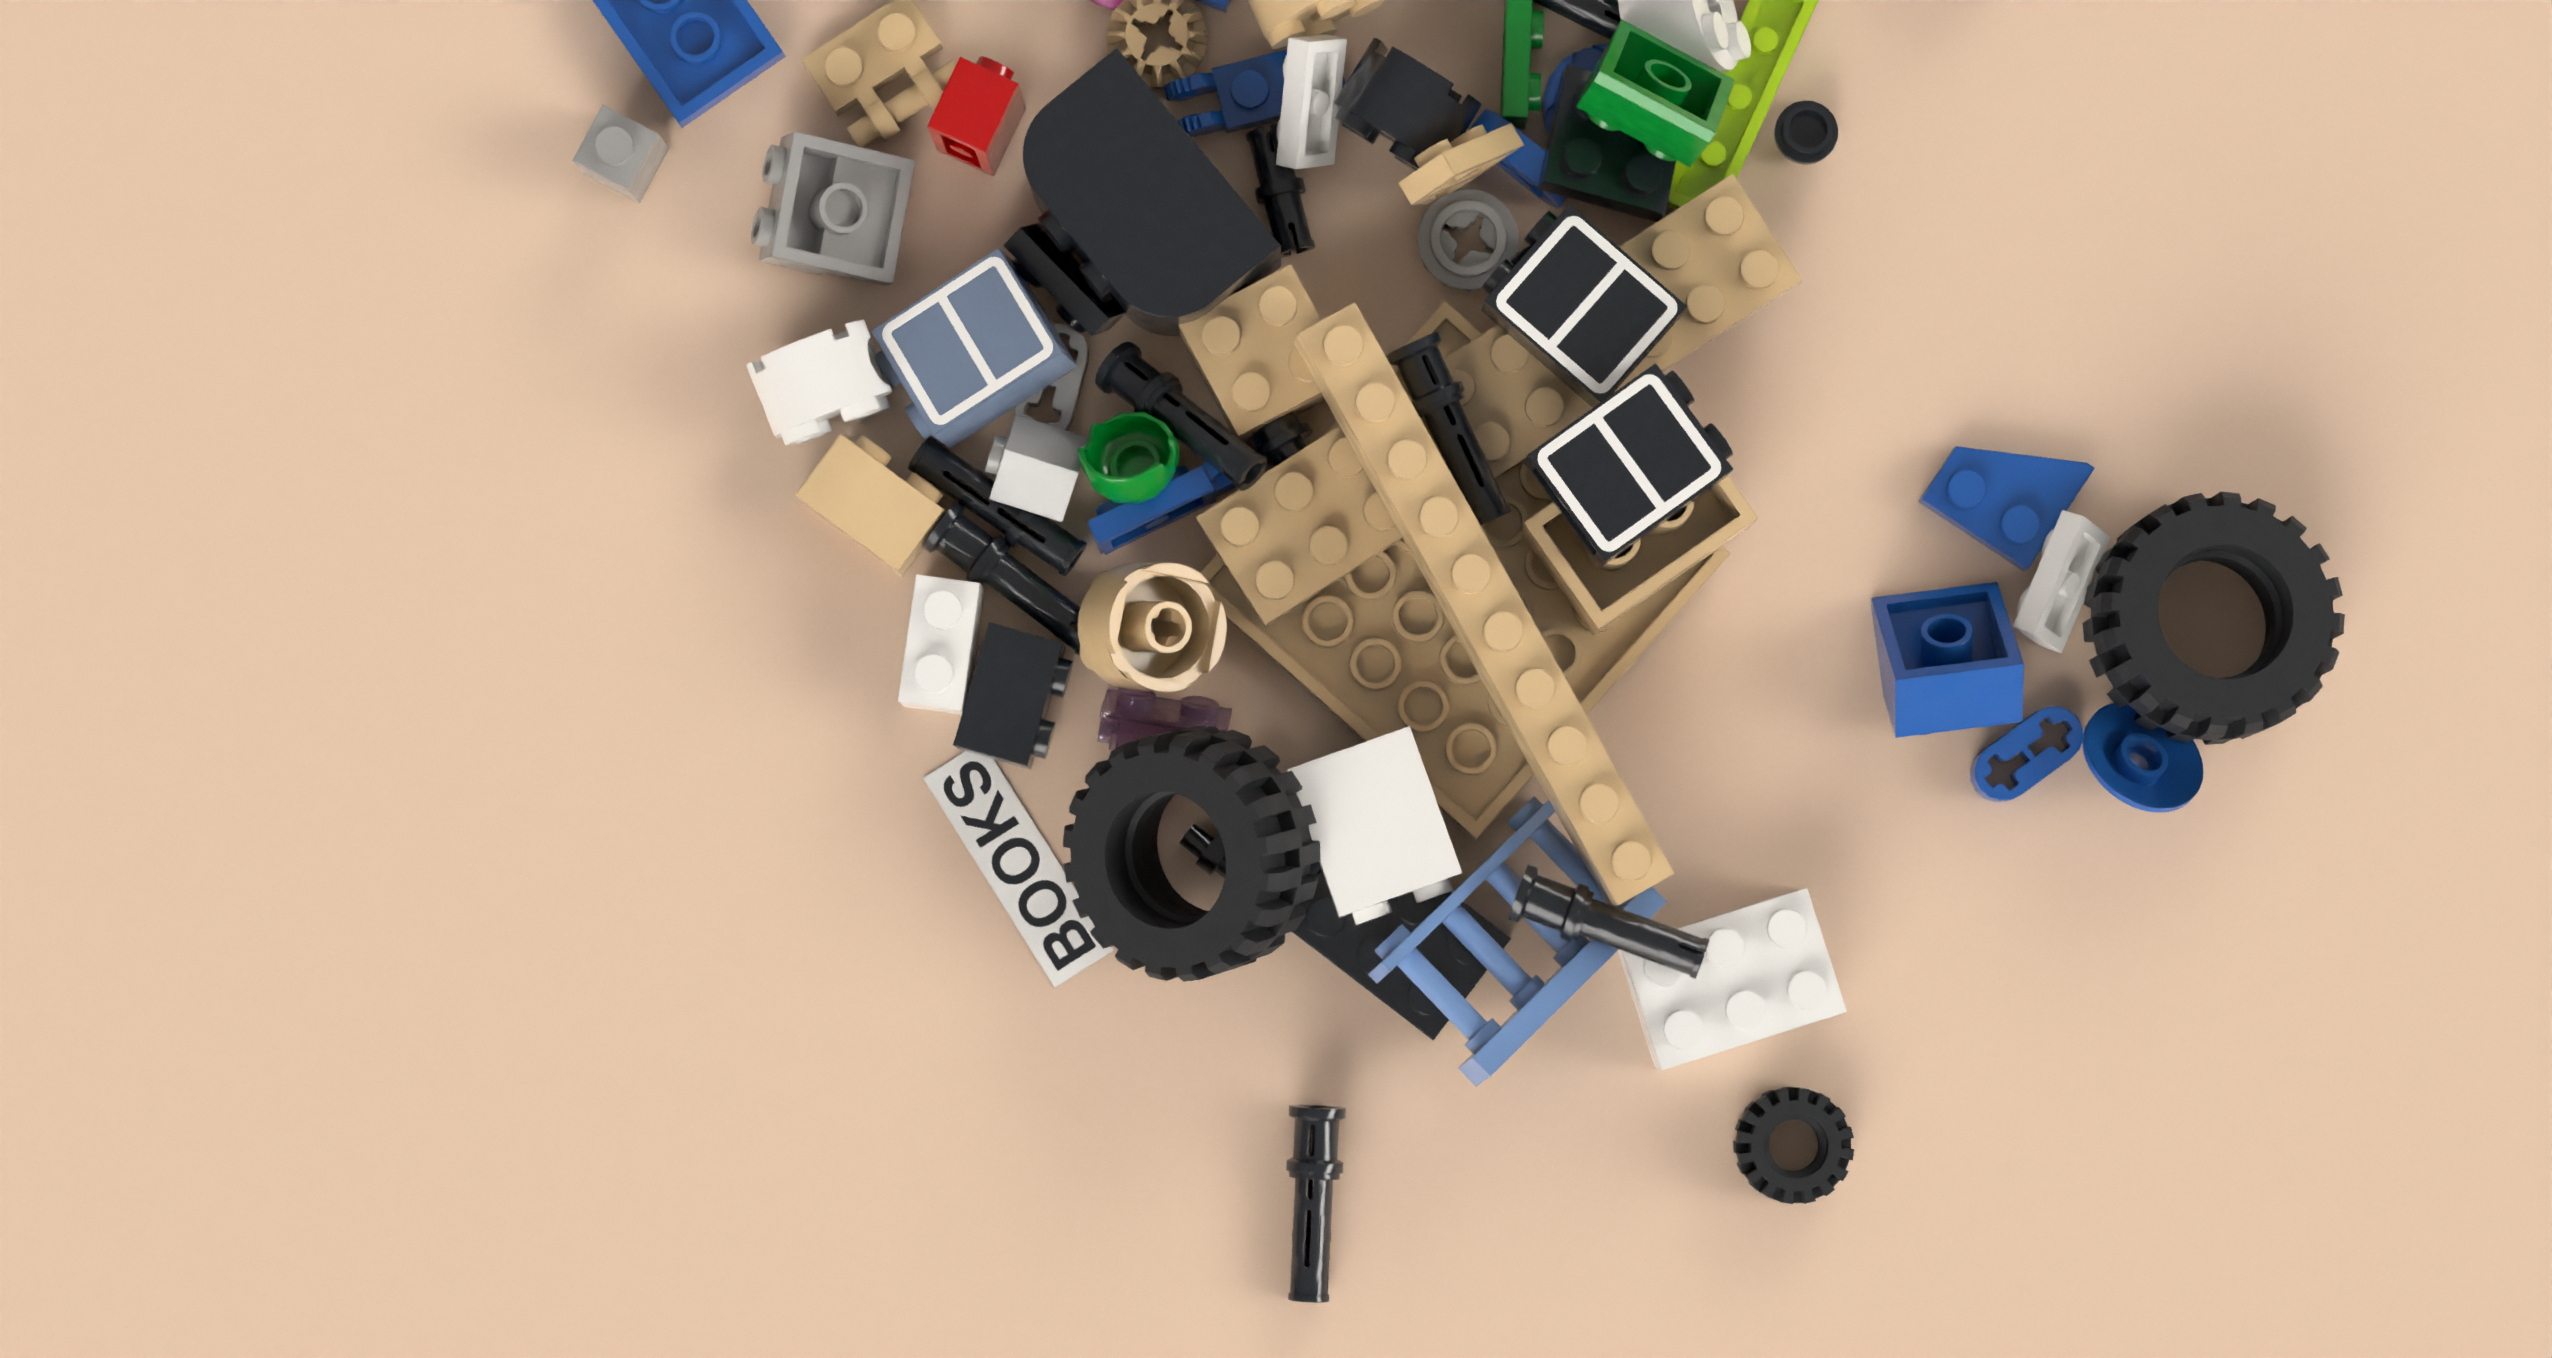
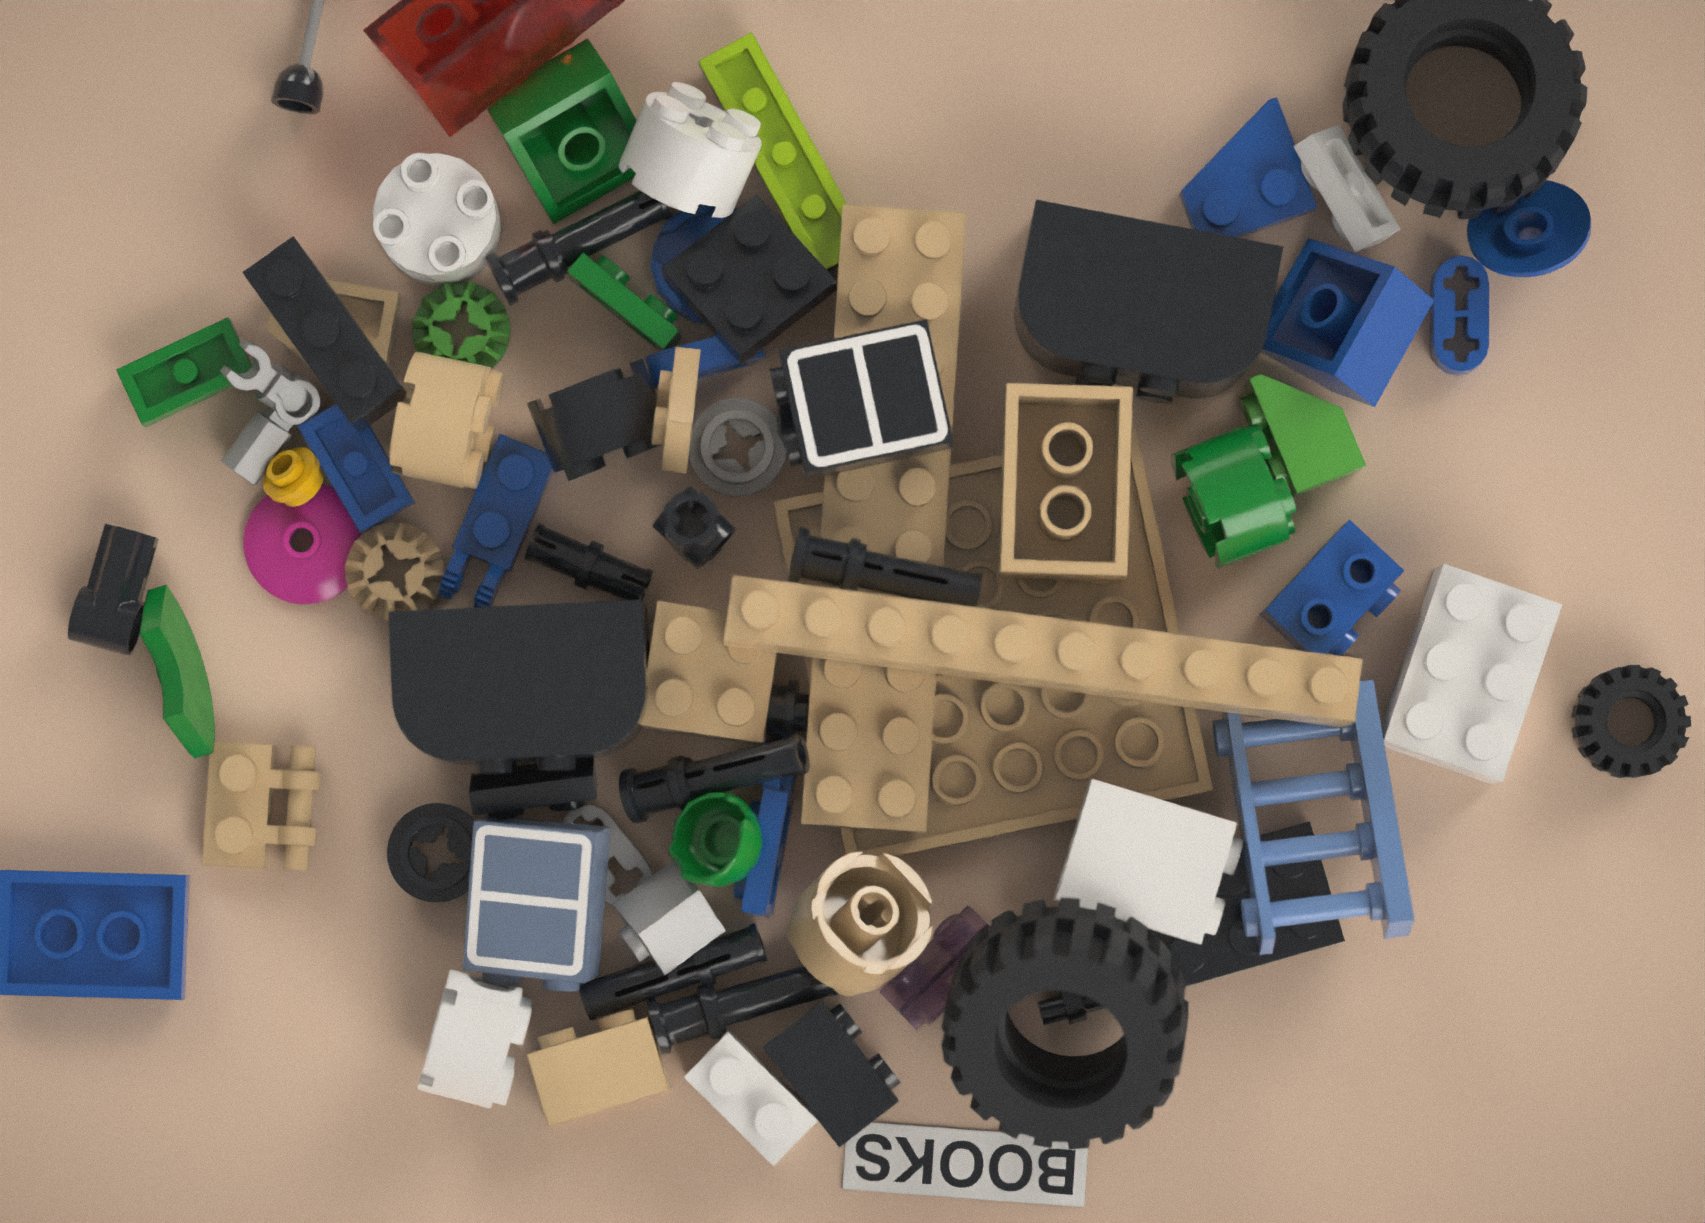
camera: 55 degrees left, 0 degrees up
(621, 153) = (171, 1063): light grey brick -> none
(833, 208) = (340, 927): light grey plate -> none
(926, 227) = (410, 866): none -> black gear
(977, 114) = (353, 757): red brick -> none
(1308, 112) = (547, 497): white plate -> none
(1314, 1169) = (1372, 1103): black pin -> none
(1373, 246) = (694, 527): none -> black piece
(1577, 913) = (1334, 756): black pin -> none
(1630, 463) = (1020, 454): black brick -> none
(1656, 95) = (742, 218): green slope -> none
(1716, 818) = (1334, 593): none -> blue brick
(1734, 674) = (1234, 496): none -> green brick
(1806, 132) = (849, 122): black plate -> none
(1829, 699) = (1305, 434): none -> bright green slope
(1837, 479) = (1142, 302): none -> black brick

